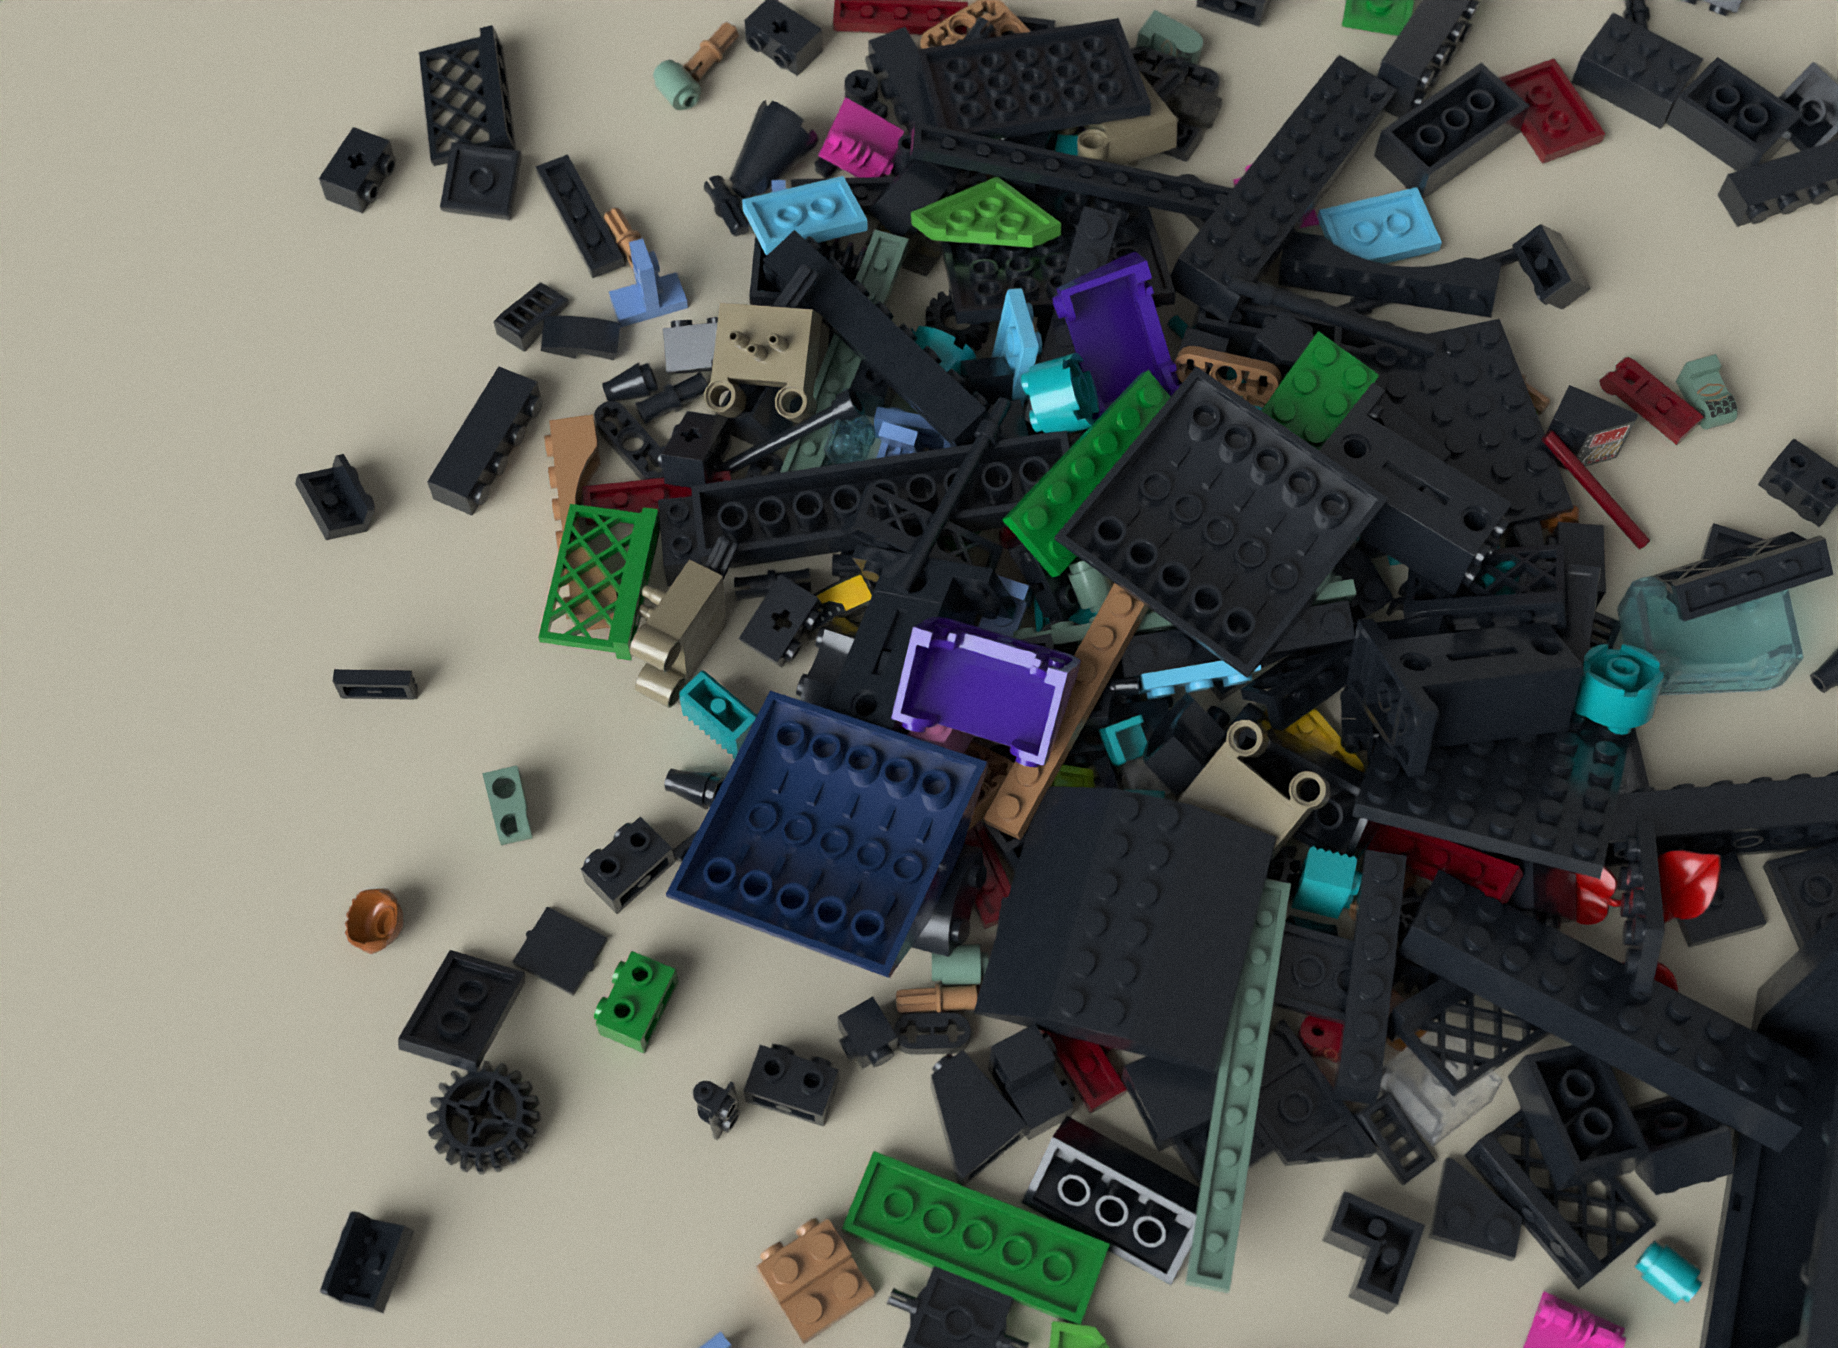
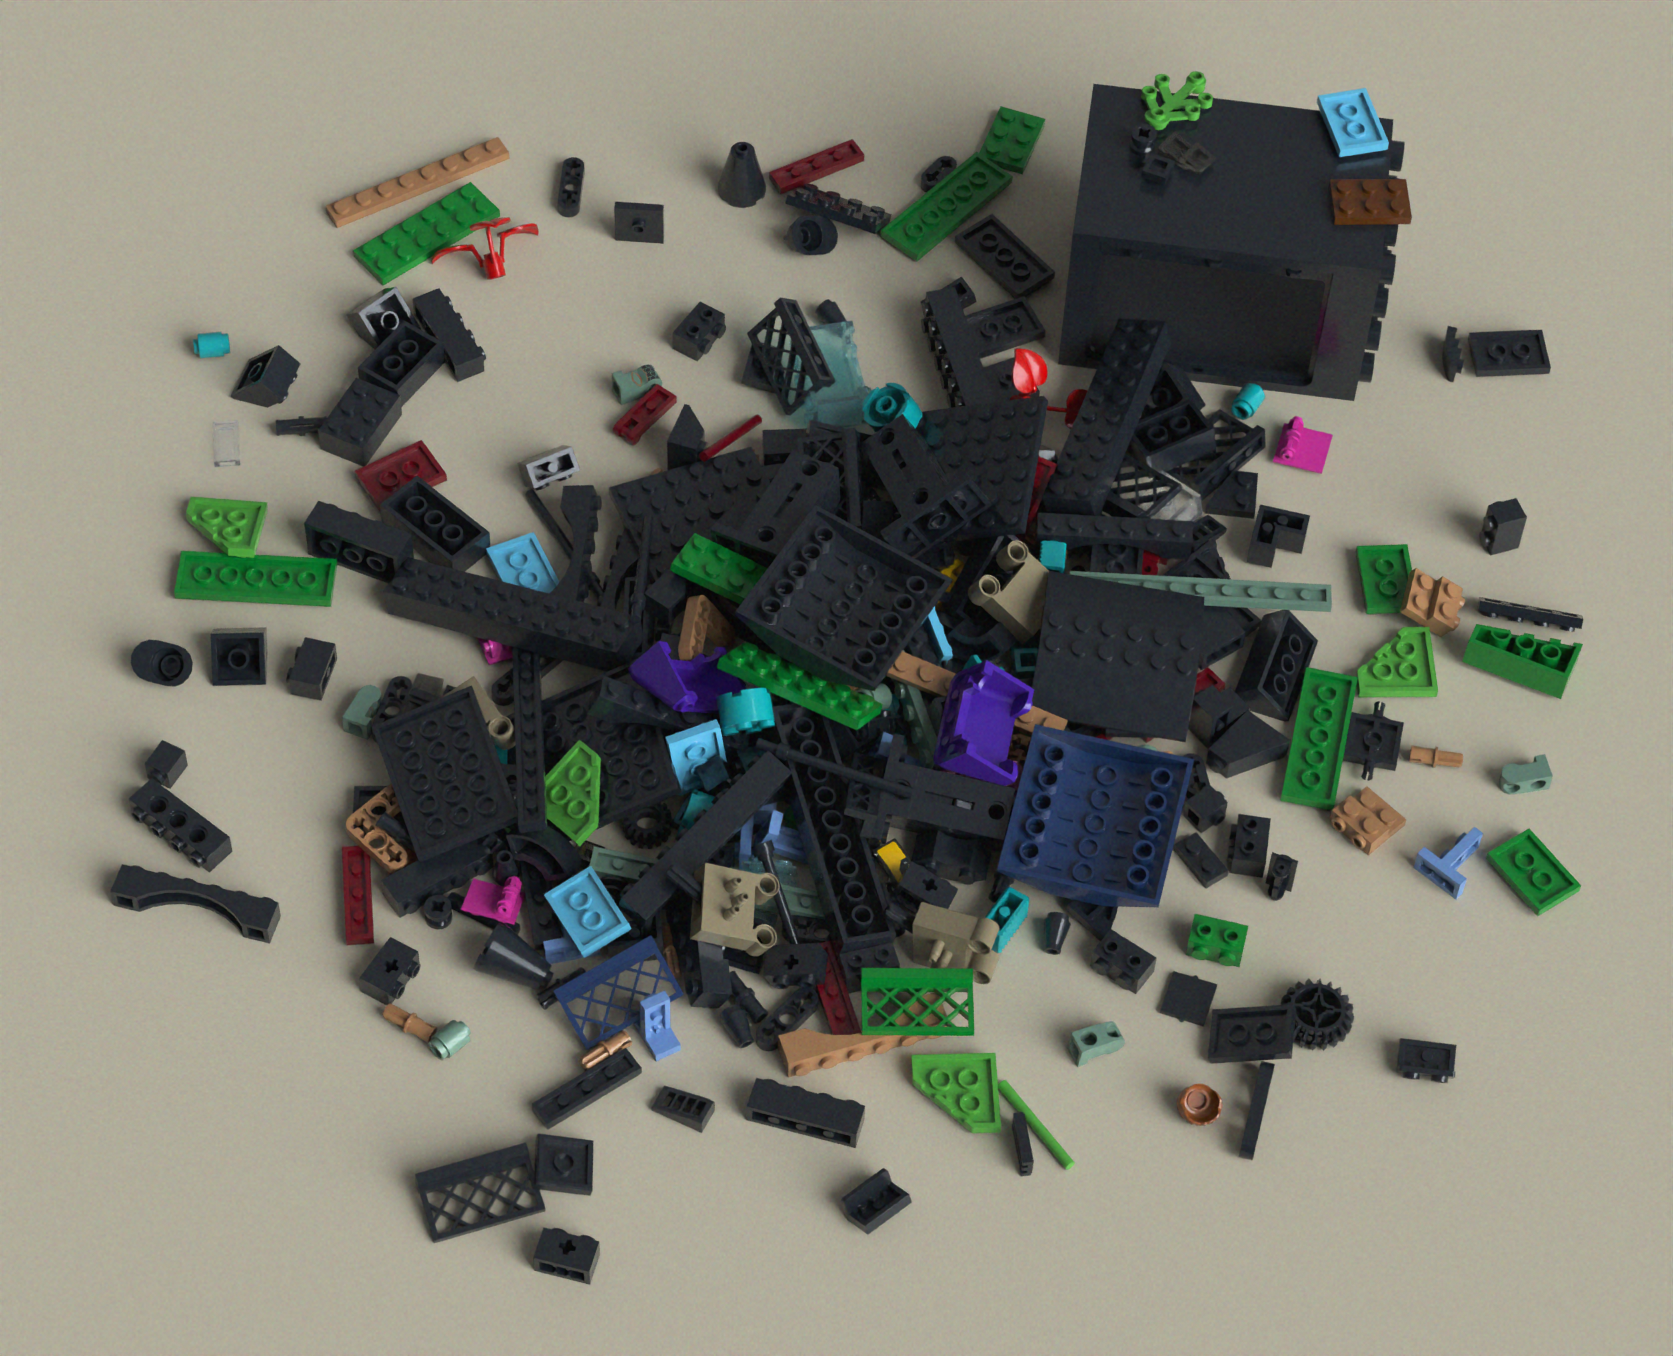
camera: 100 degrees left, 10 degrees down
(344, 996) = (1256, 1110): none -> black beam
(408, 713) = (1036, 1125): none -> bright green bar
(480, 629) = (962, 1087): none -> bright green plate
(578, 334) = (702, 1066): black slope -> none
(716, 234) = (603, 973): none -> dark blue fence
(786, 1014) = (1201, 860): none -> black plate
(1641, 906) = (1060, 387): black plate -> none

